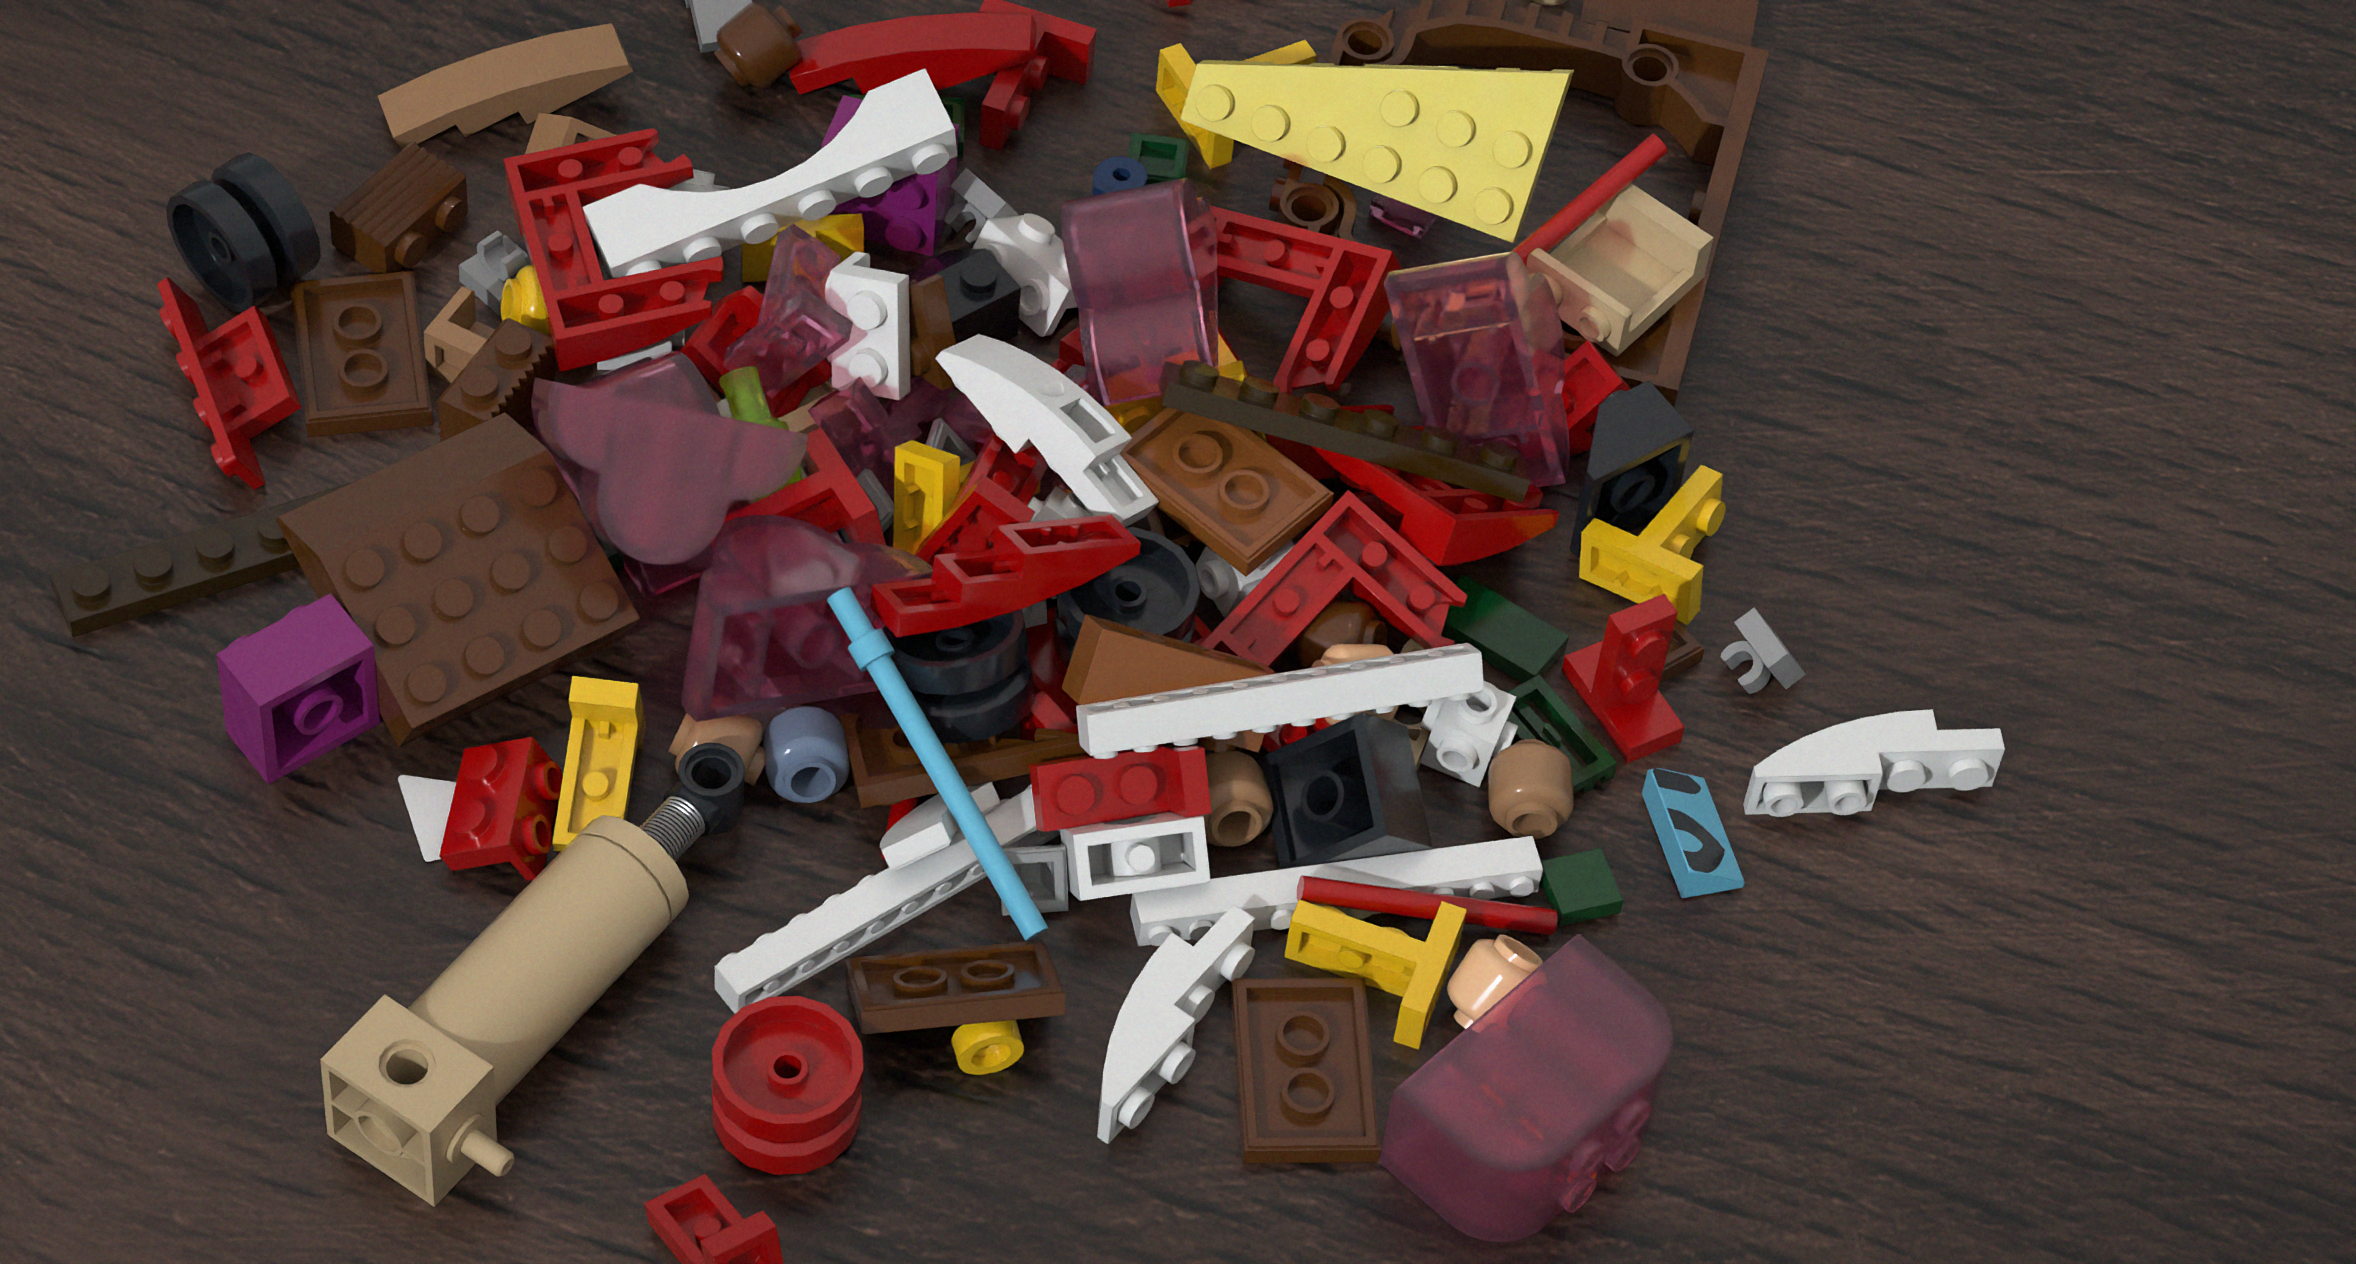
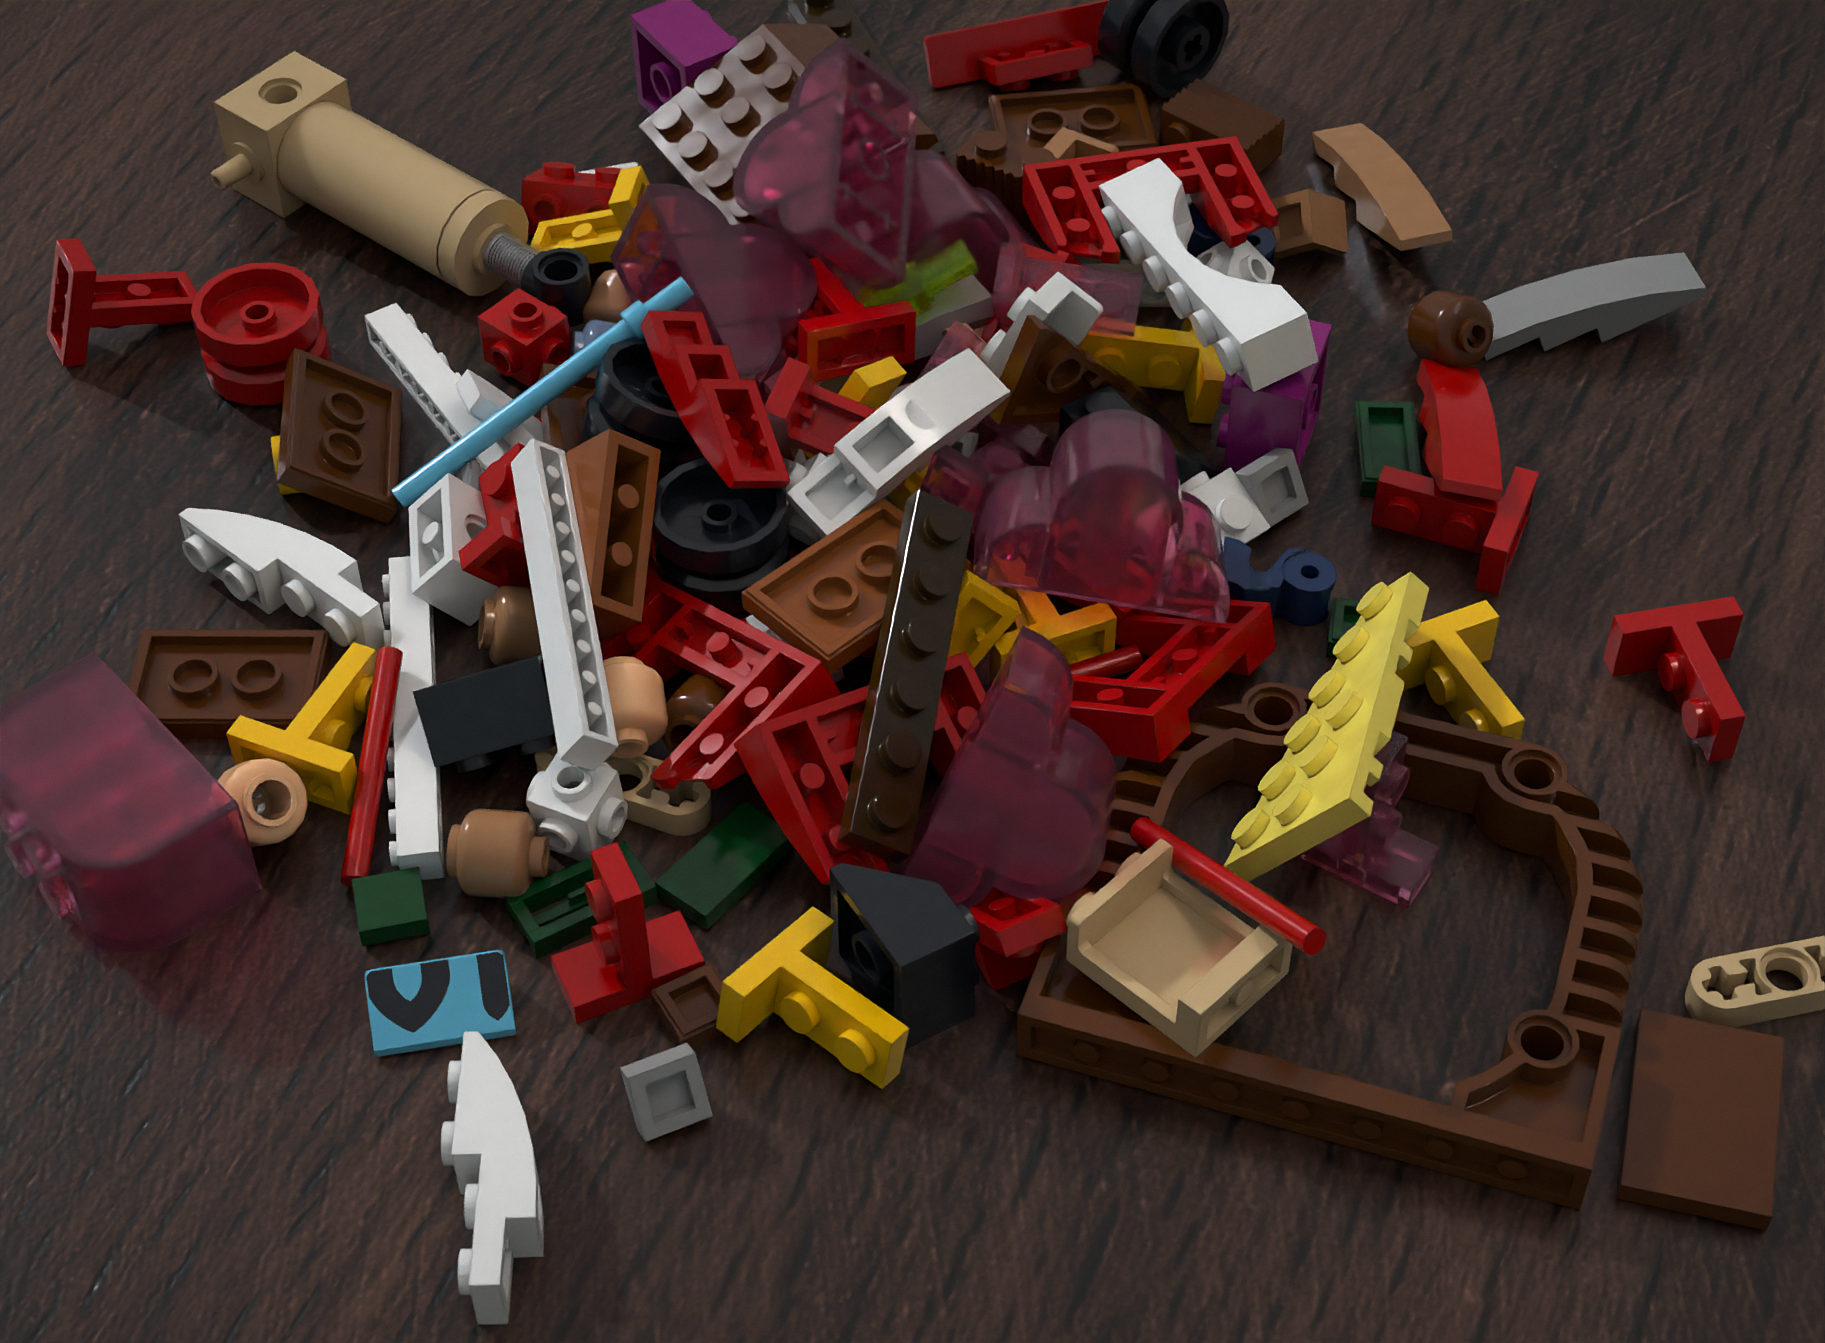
camera: 100 degrees right, 5 degrees down
(784, 828) = (523, 335): none -> red brick

